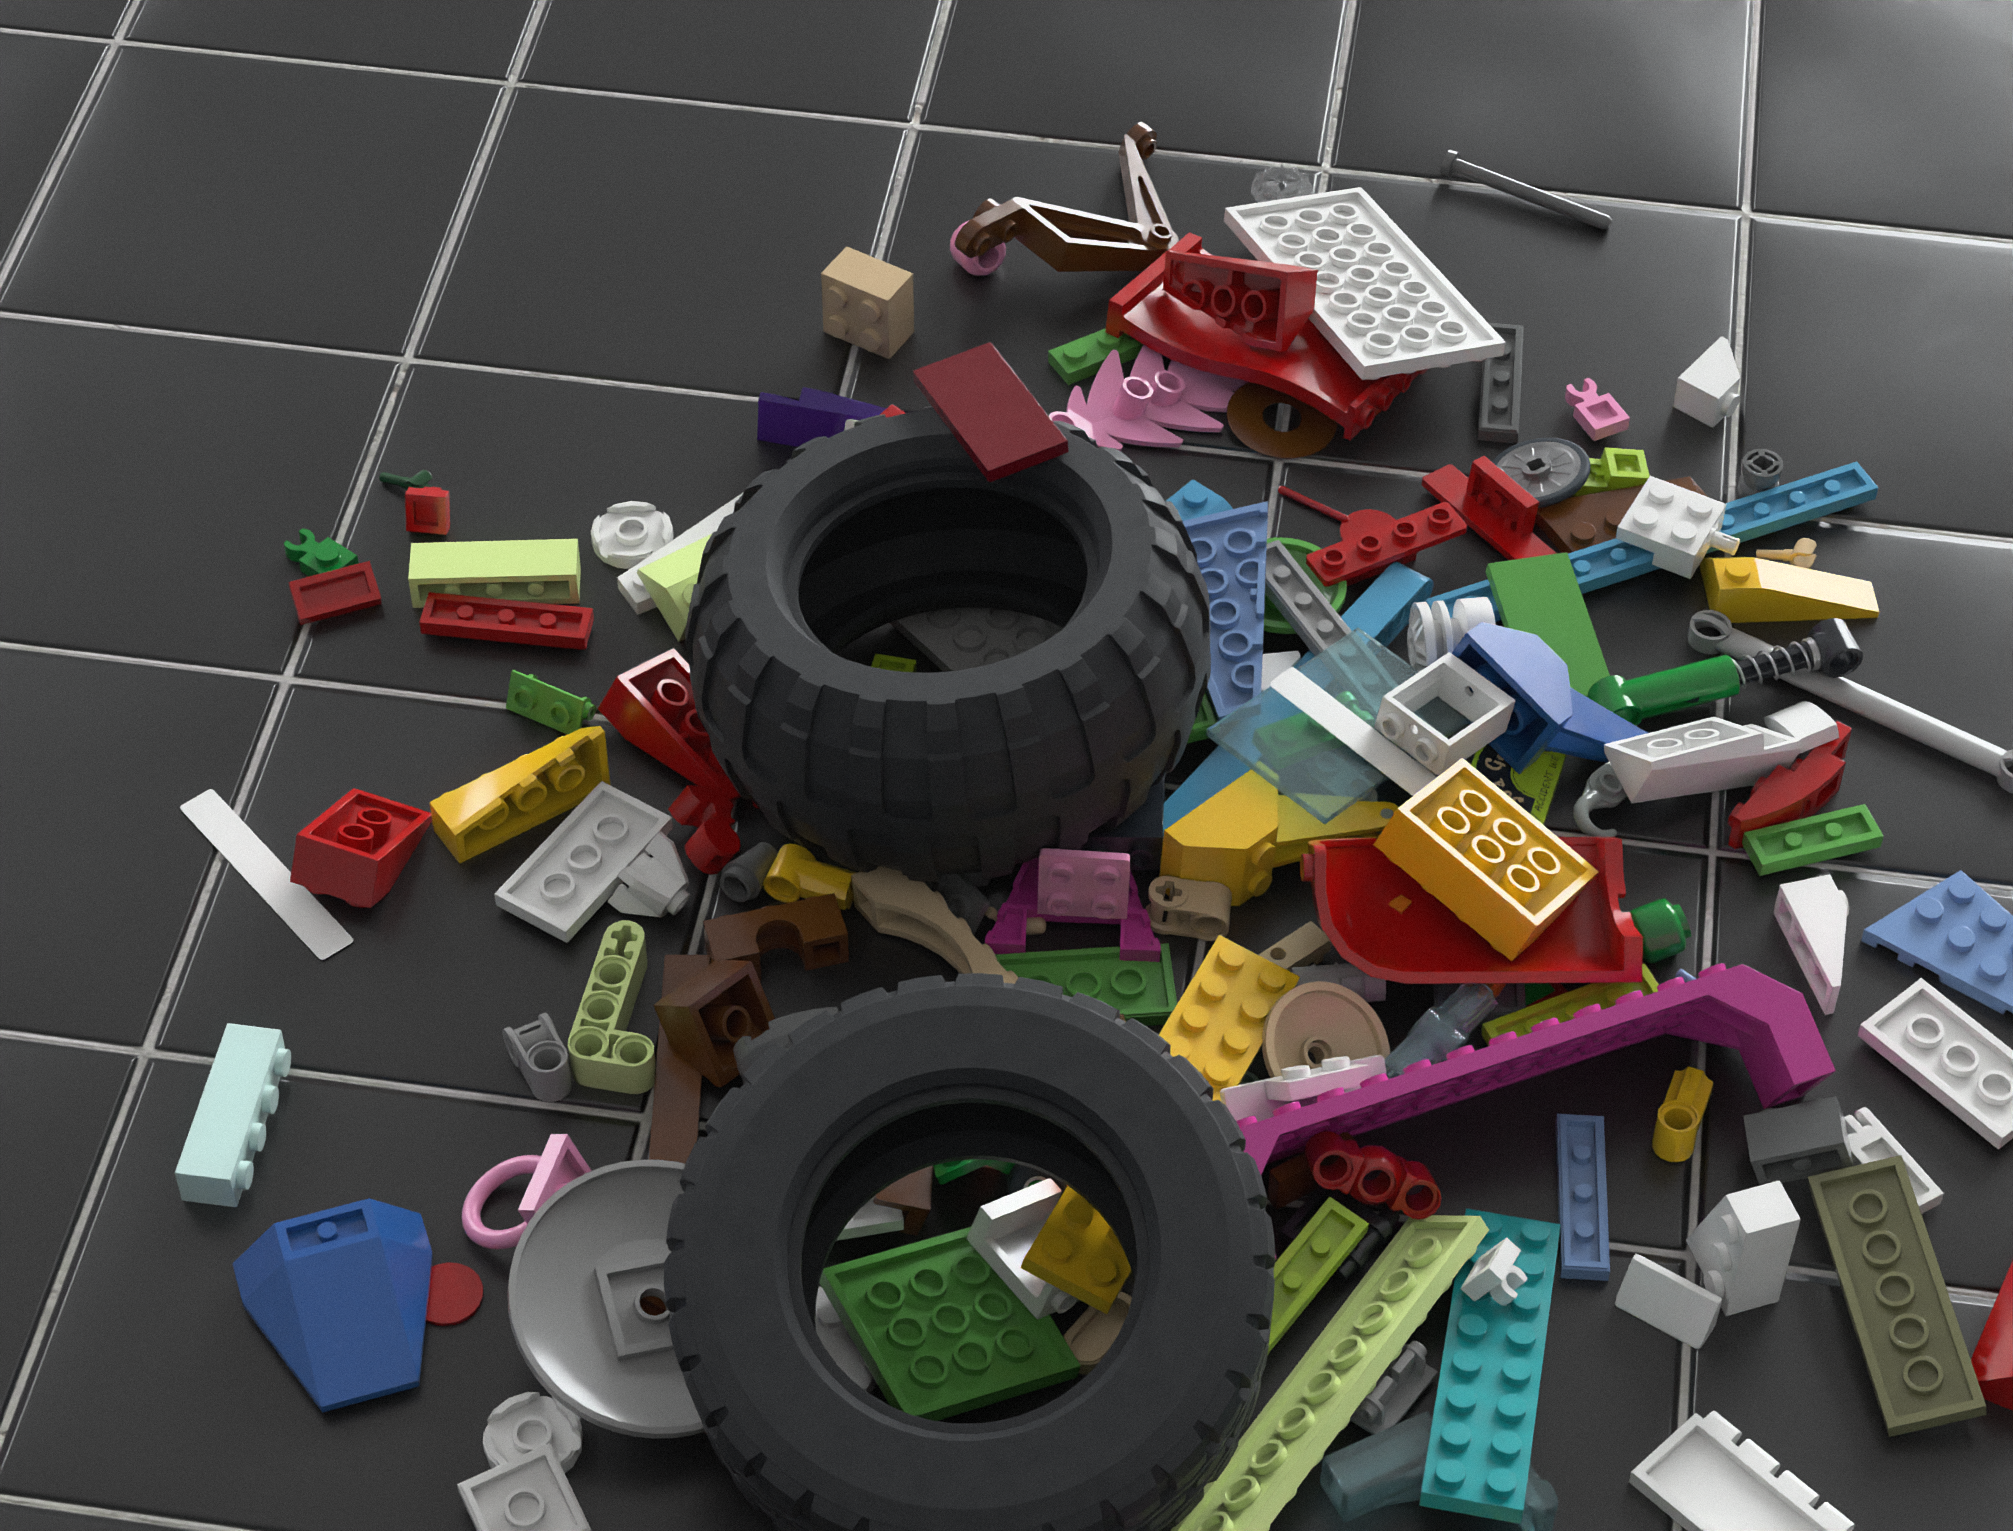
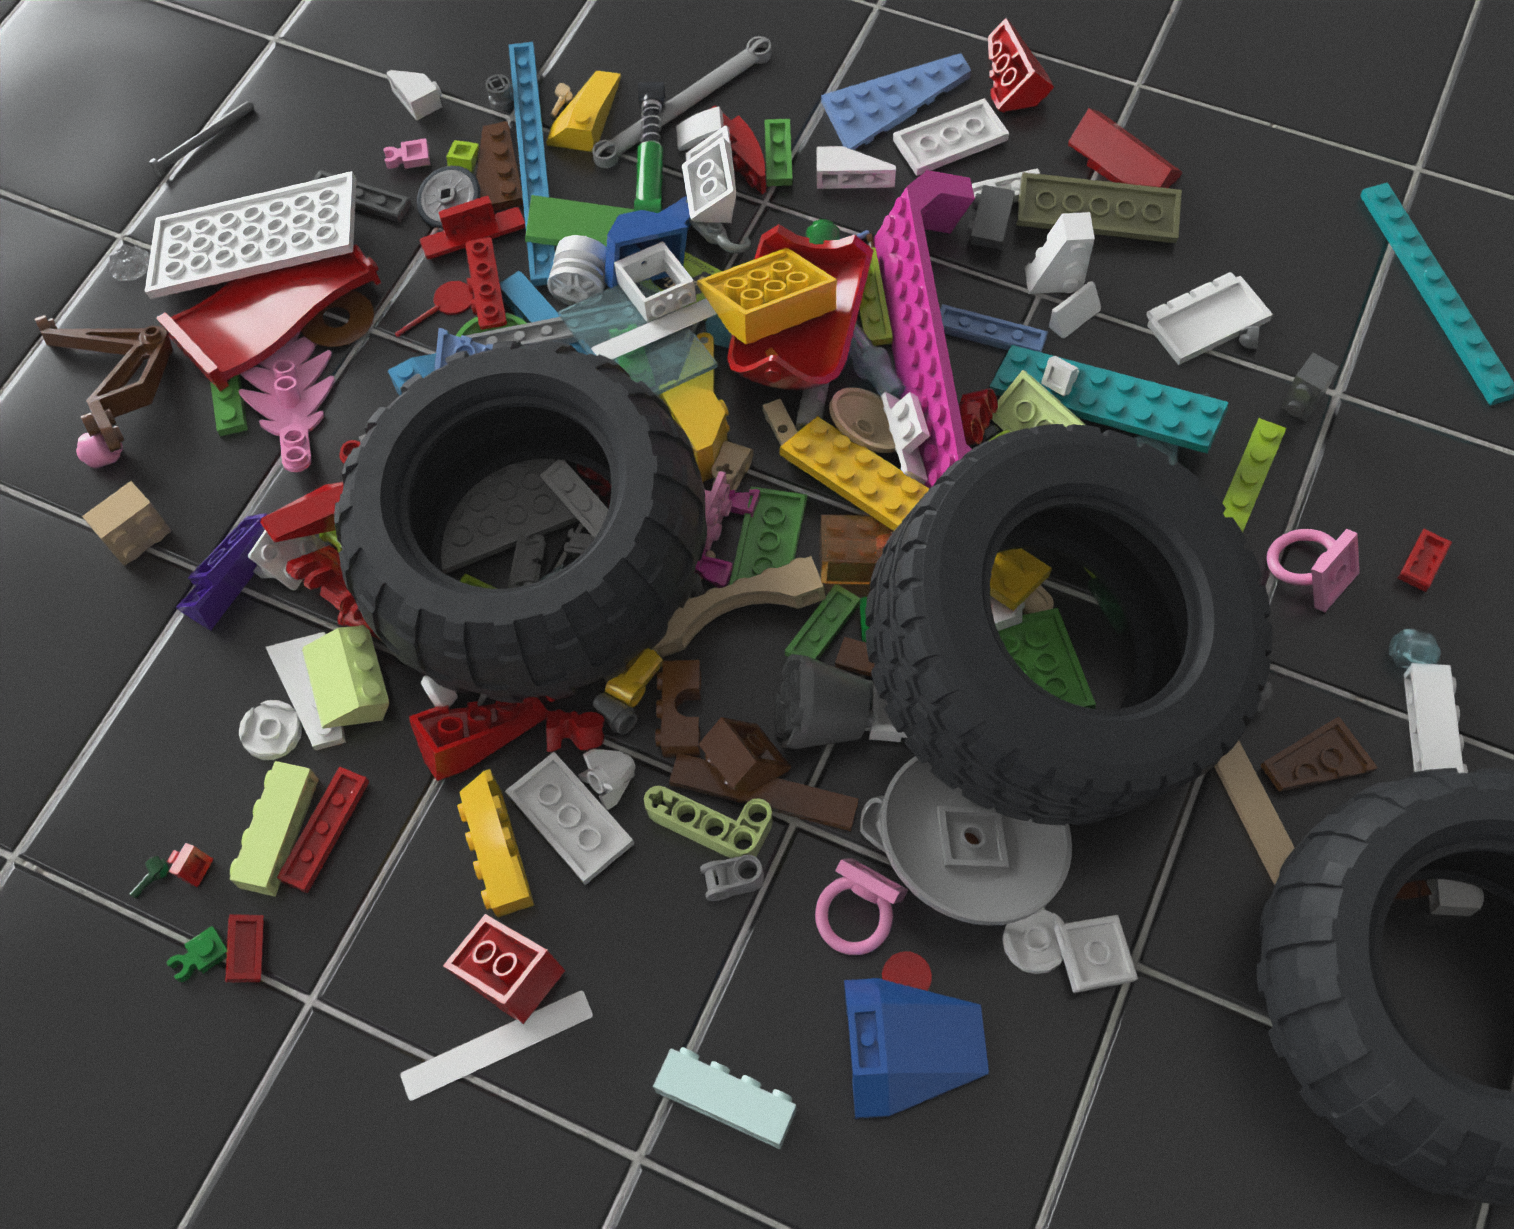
camera: 70 degrees left, 15 degrees up
(547, 703) = (422, 808): bright green hinge -> none
(990, 412) = (385, 419): dark red tile -> none
(1251, 297) = (246, 292): red wedge -> none
(1675, 526) = (532, 137): white plate -> none
(1681, 1115) = (960, 268): yellow piece -> none

